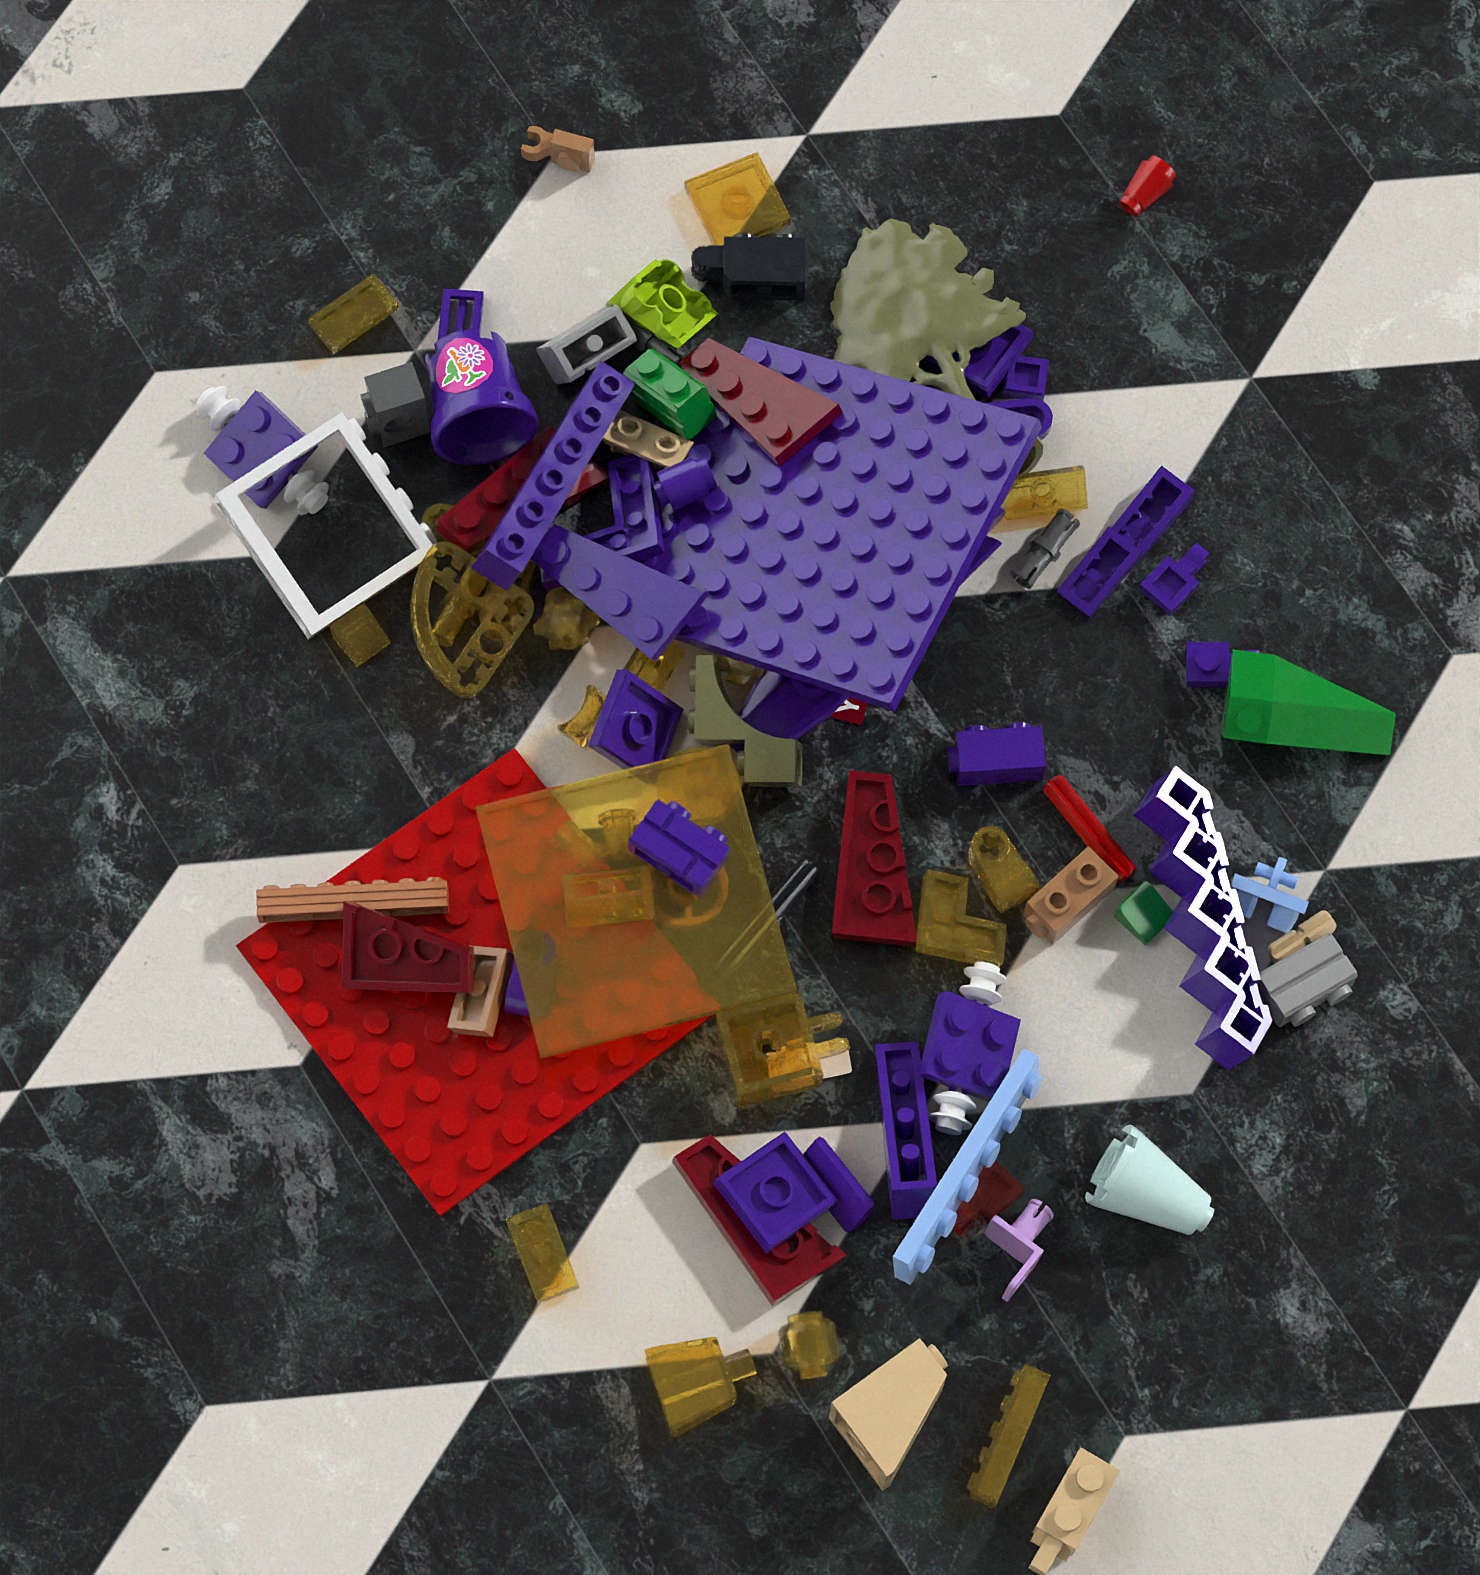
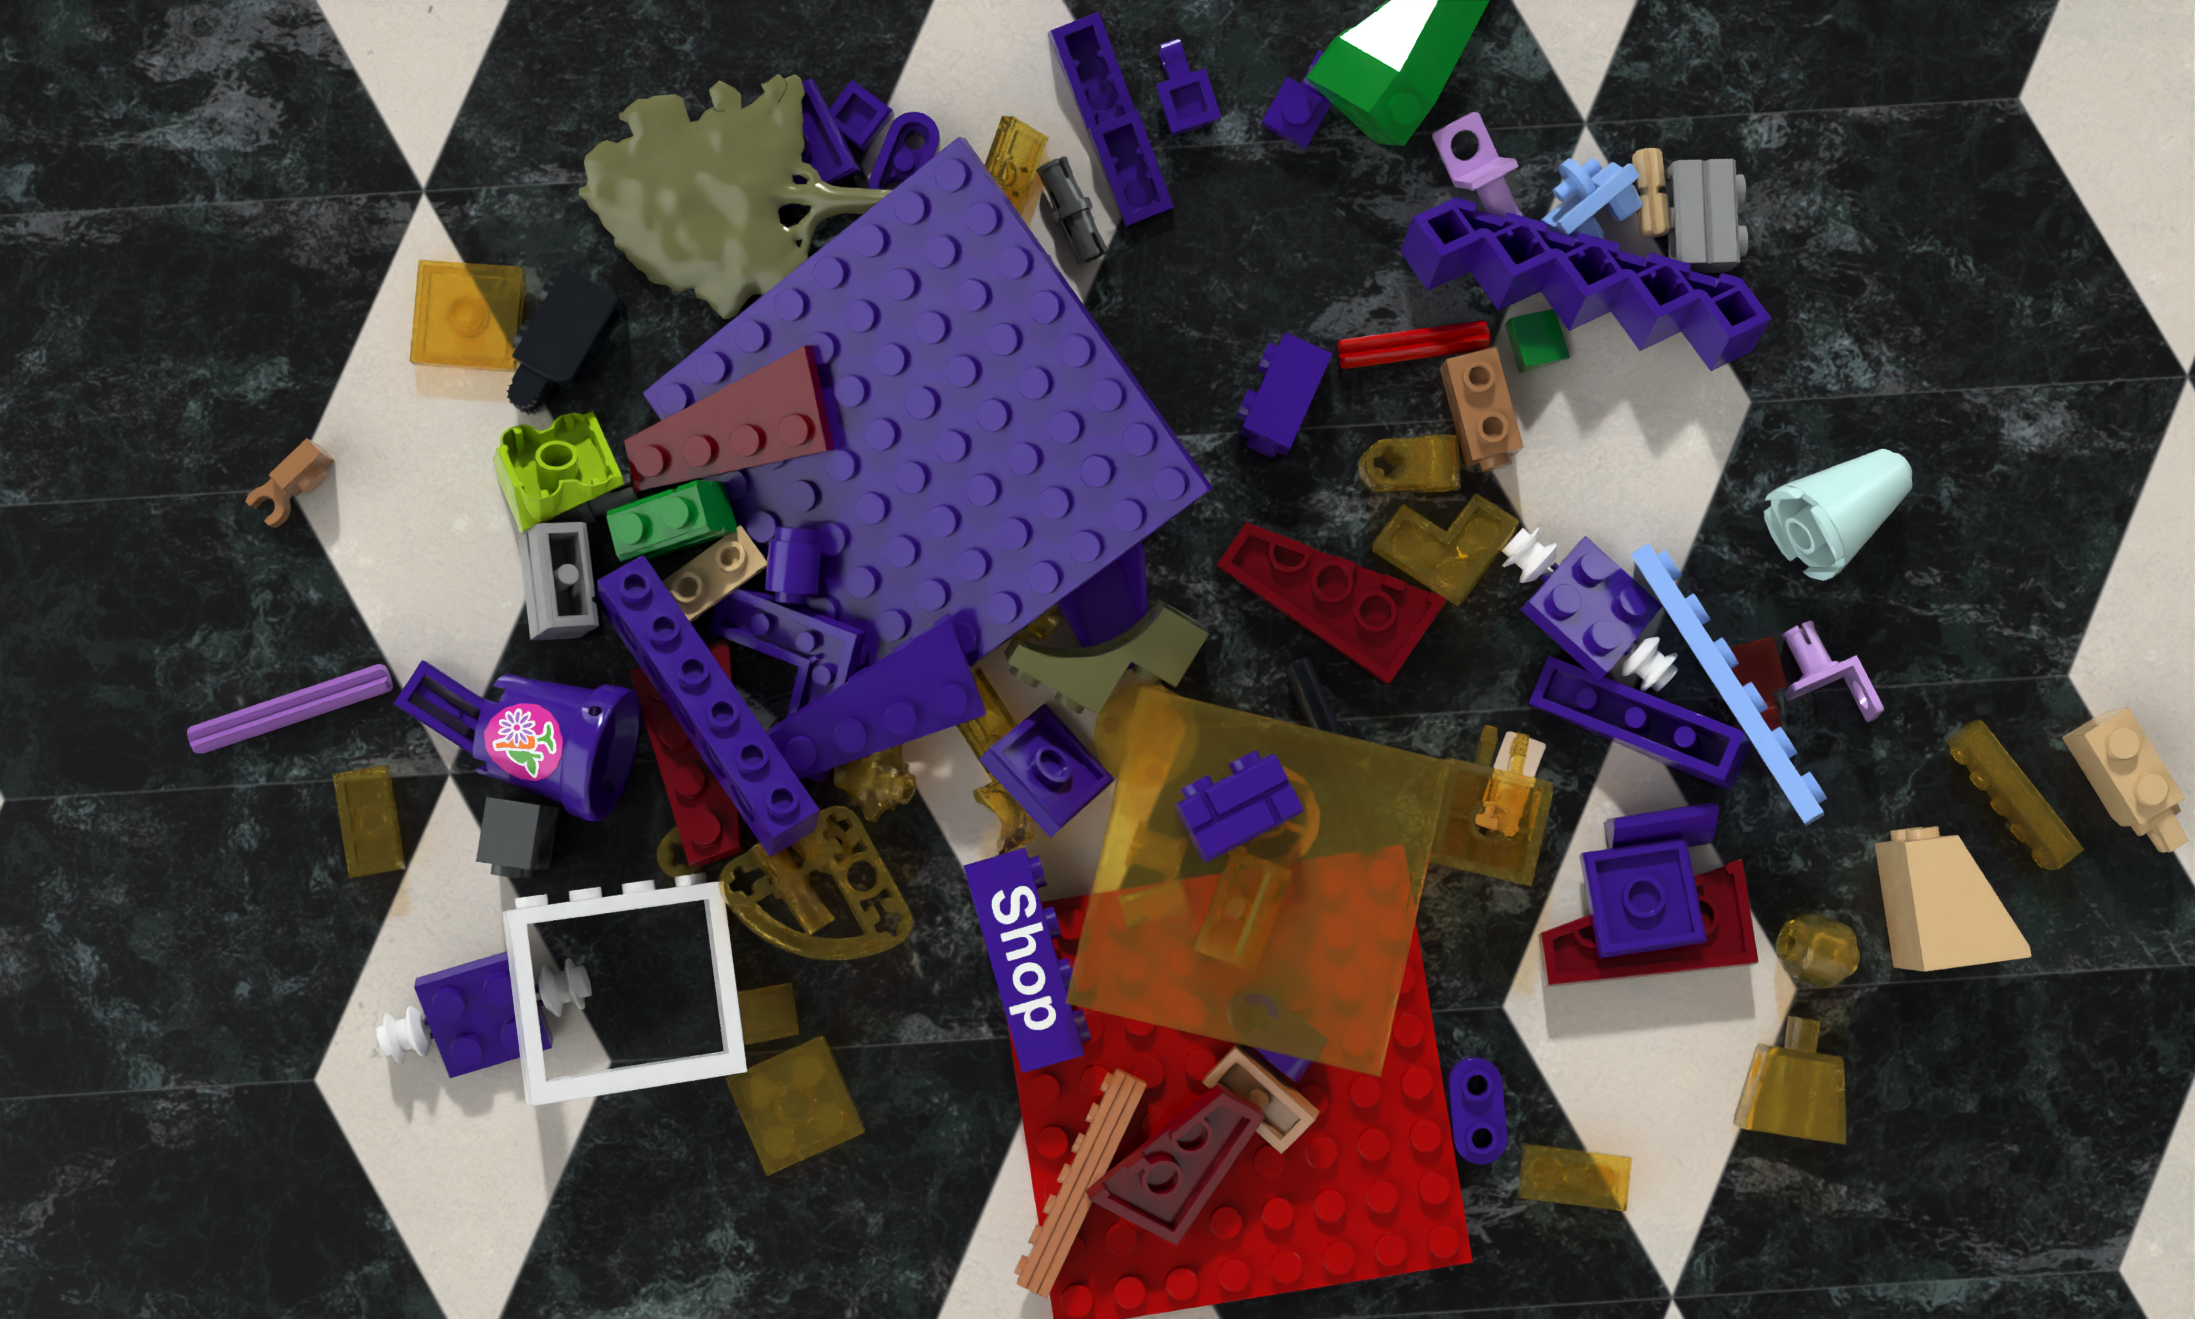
camera: 65 degrees left, 15 degrees up
(304, 688) = (795, 1105): none -> clear yellow plate
(403, 227) = (289, 708): none -> medium lavender axle
(497, 771) = (1025, 960): none -> dark purple brick
(555, 1161) = (1477, 1111): none -> dark purple plate
(1240, 810) = (1483, 171): none -> lavender bracket

